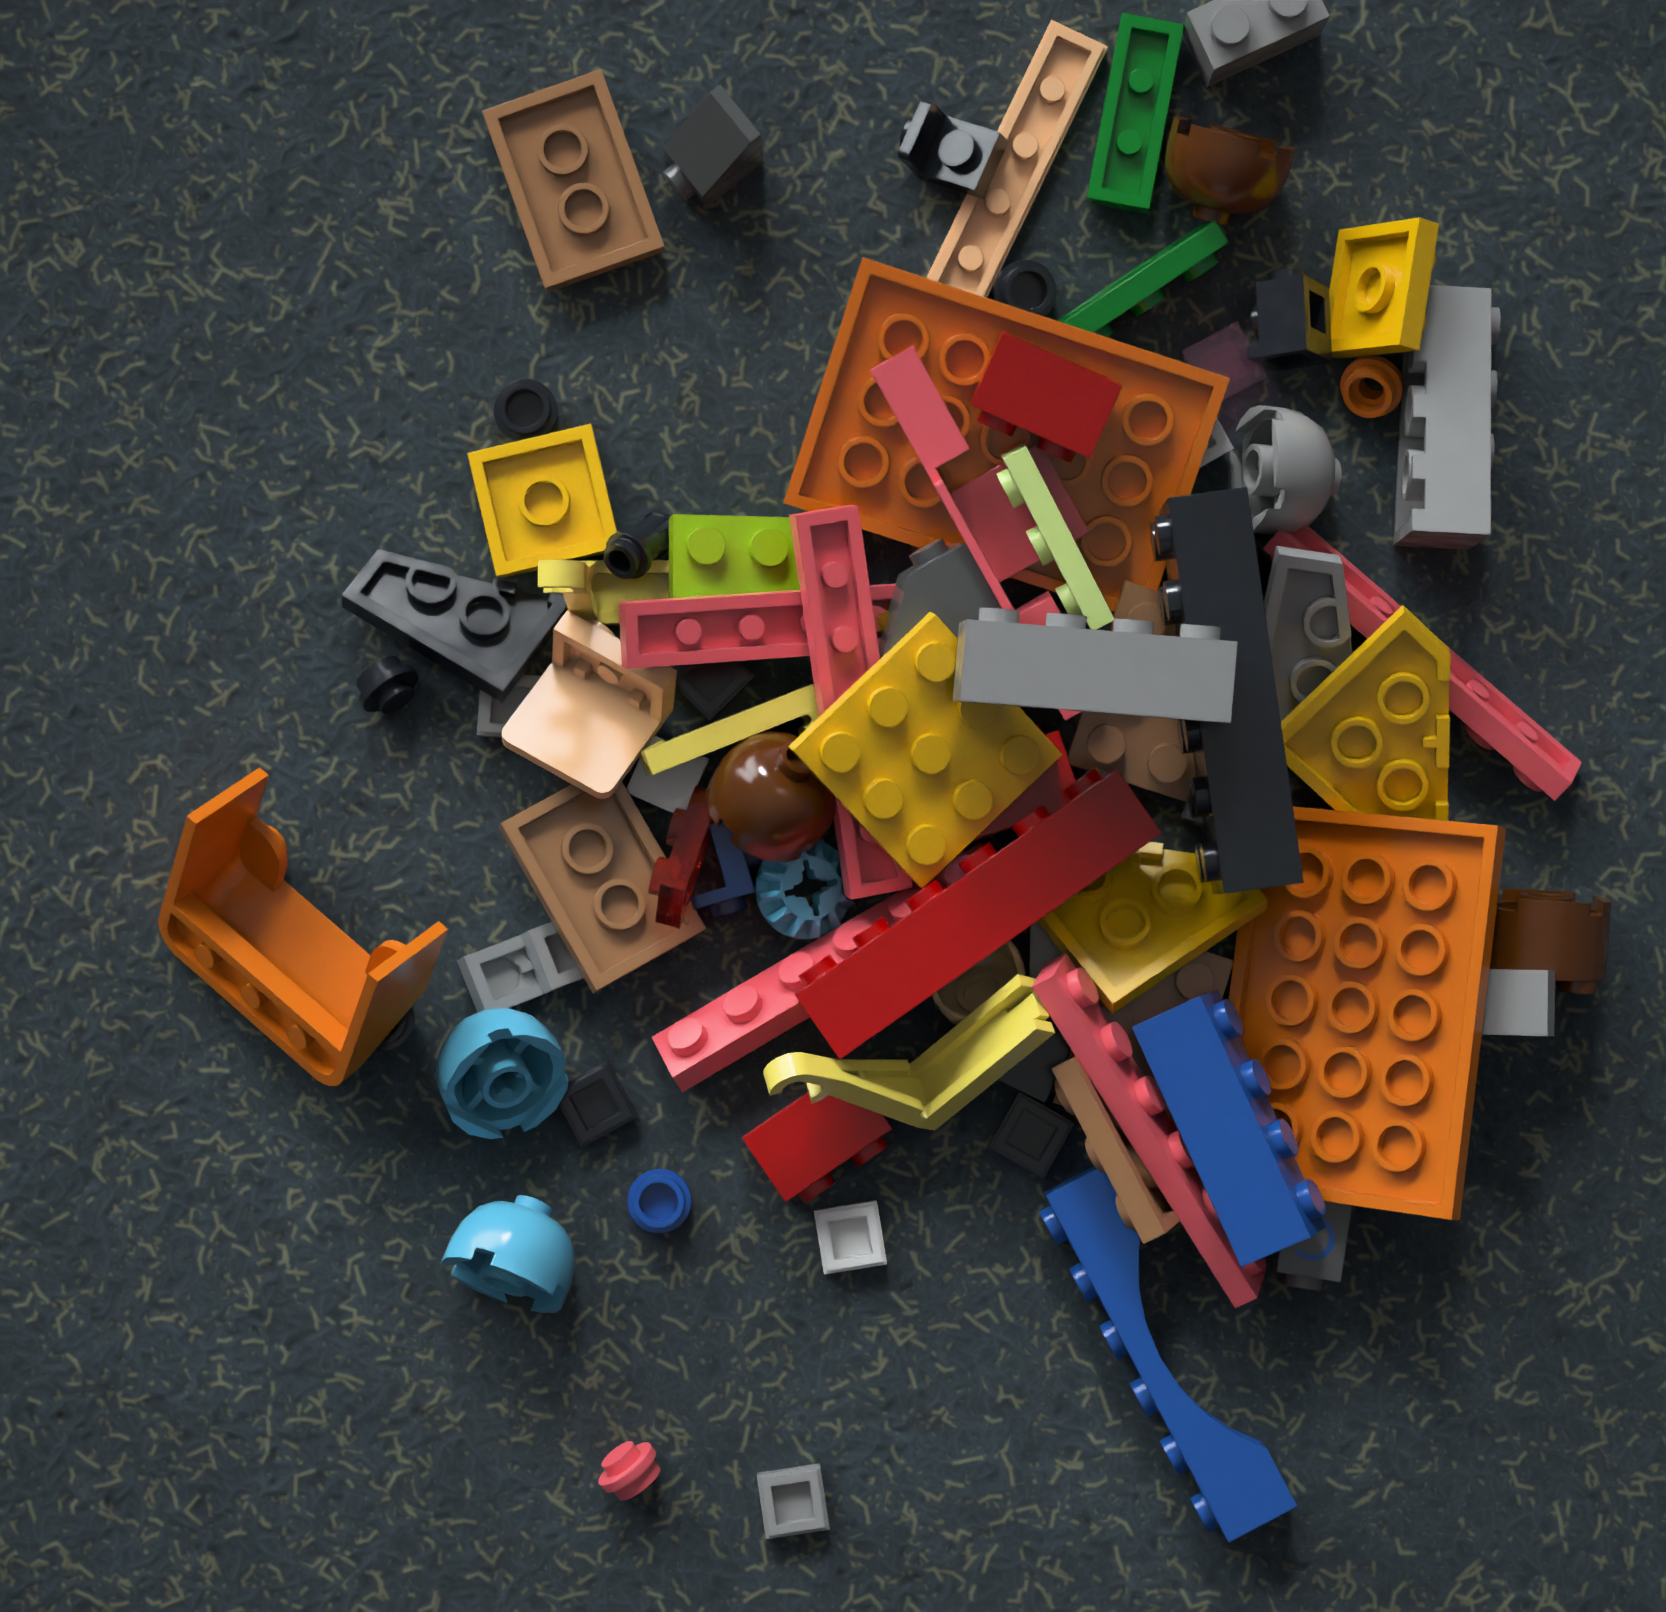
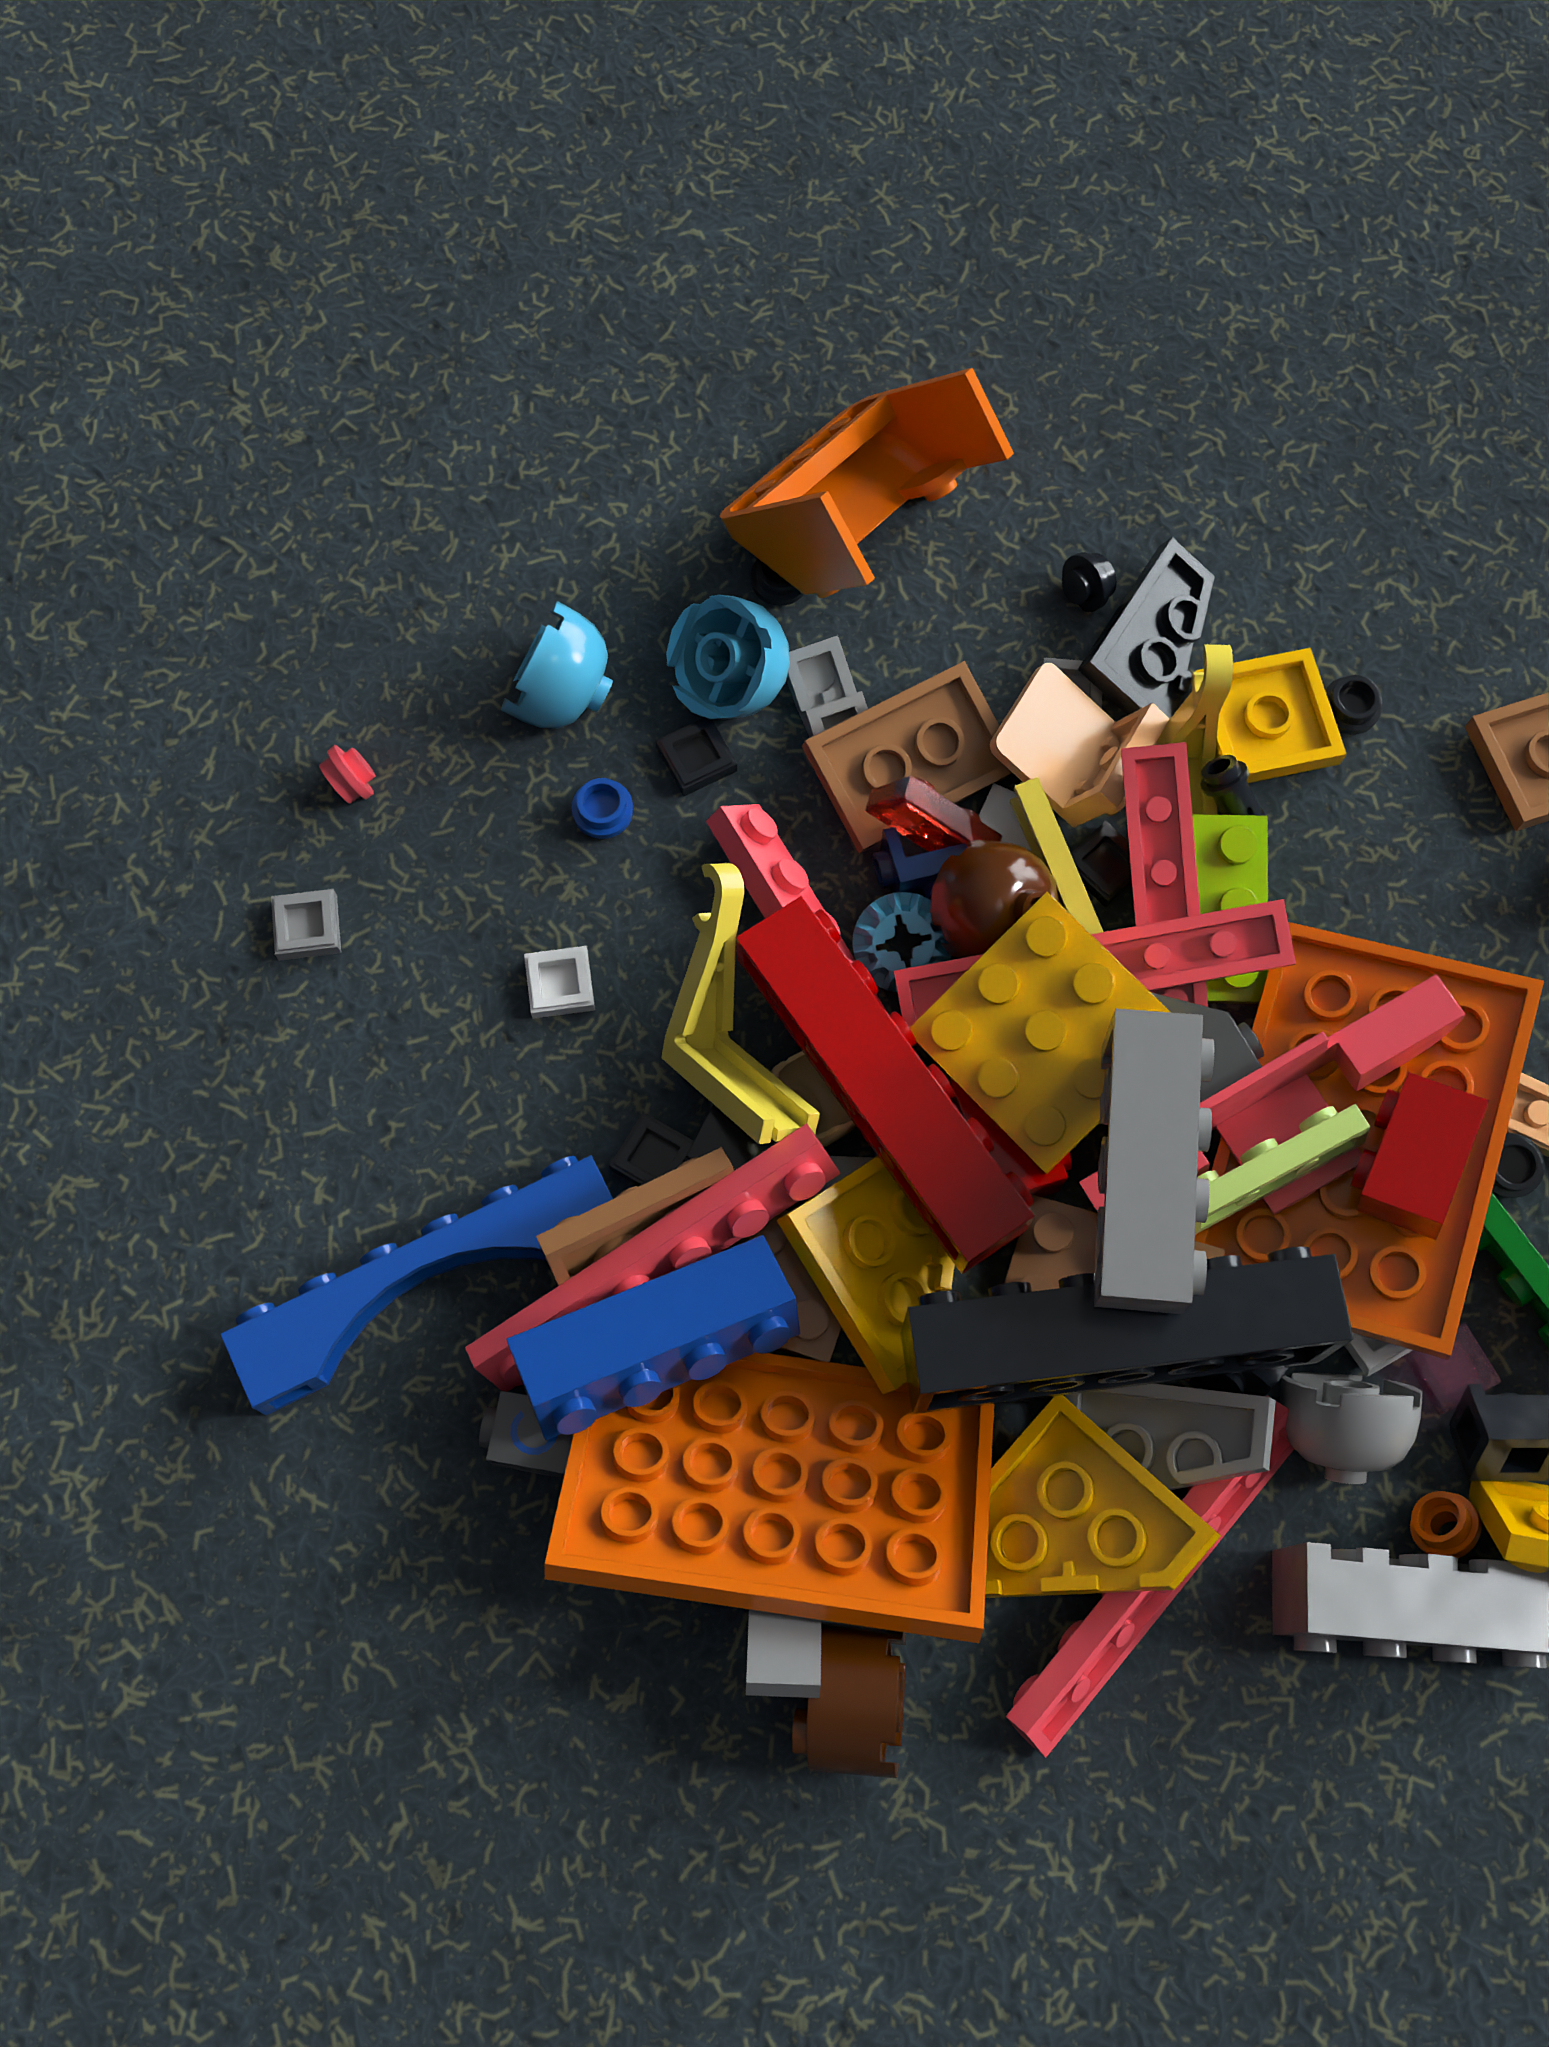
camera: 85 degrees right, 15 degrees down
(810, 1140) = (653, 937): red brick -> none

